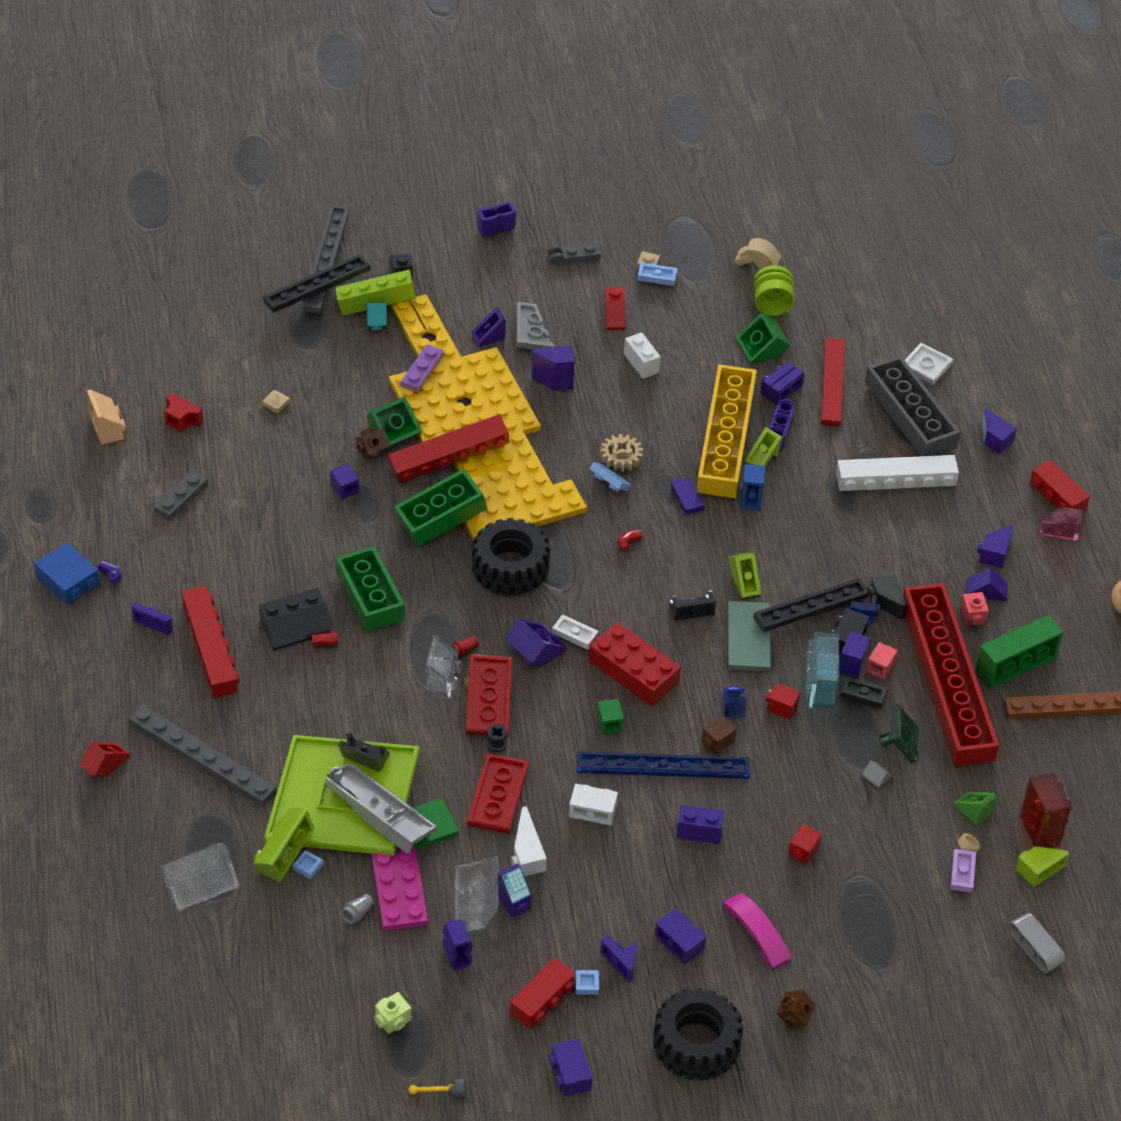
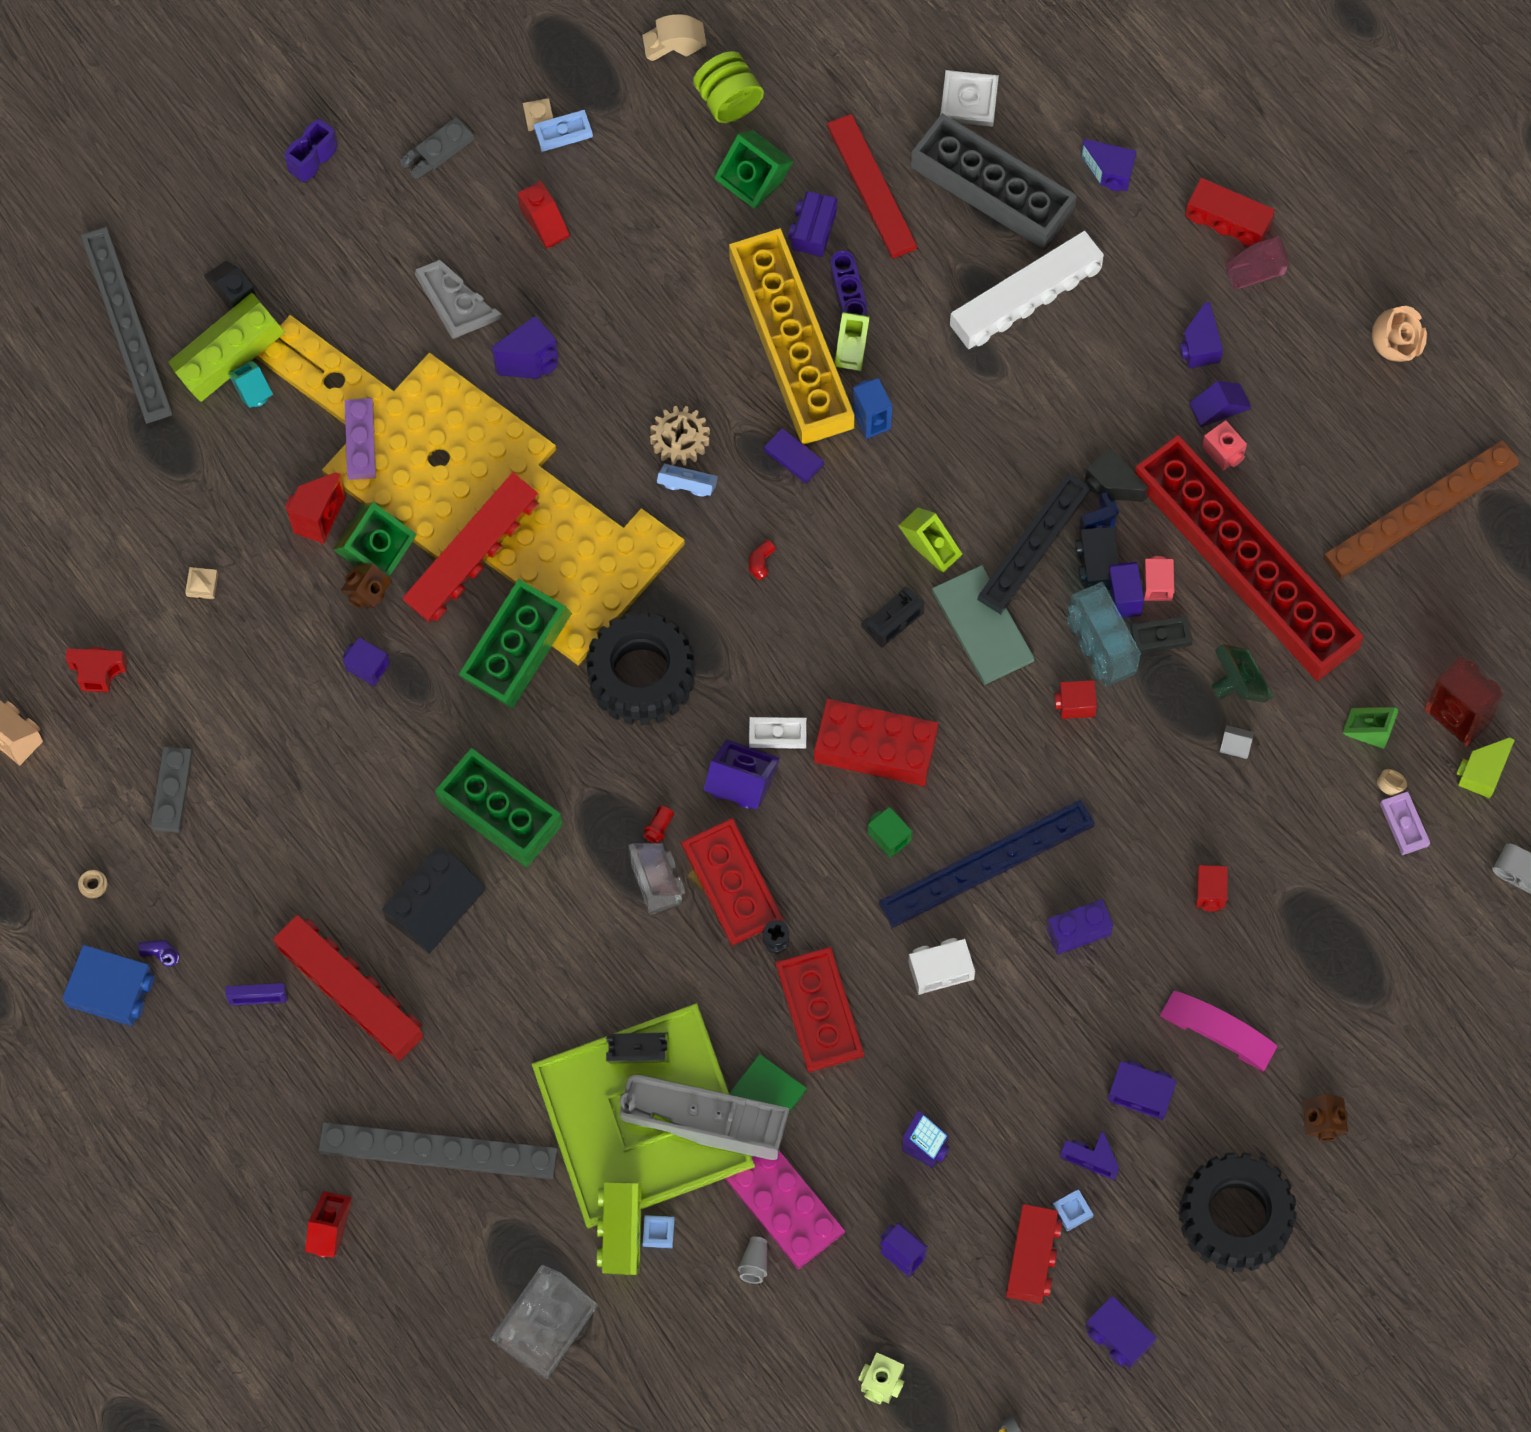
camera: 25 degrees left, 20 degrees up
(97, 519) = (88, 877): none -> tan plate
(316, 283) = (145, 377): black plate -> none
(325, 639) = (485, 907): red pin -> none
(371, 388) = (316, 507): none -> red slope
(477, 894) = (888, 1171): clear slope -> none
(491, 329) = (406, 329): dark purple slope -> none
(527, 848) = (903, 1071): white slope -> none
(642, 355) = (620, 272): white brick -> none
(718, 735) = (1029, 790): reddish brown brick -> none
(735, 701) = (1020, 729): clear blue bracket -> none
(1018, 652) = (1311, 484): green brick -> none

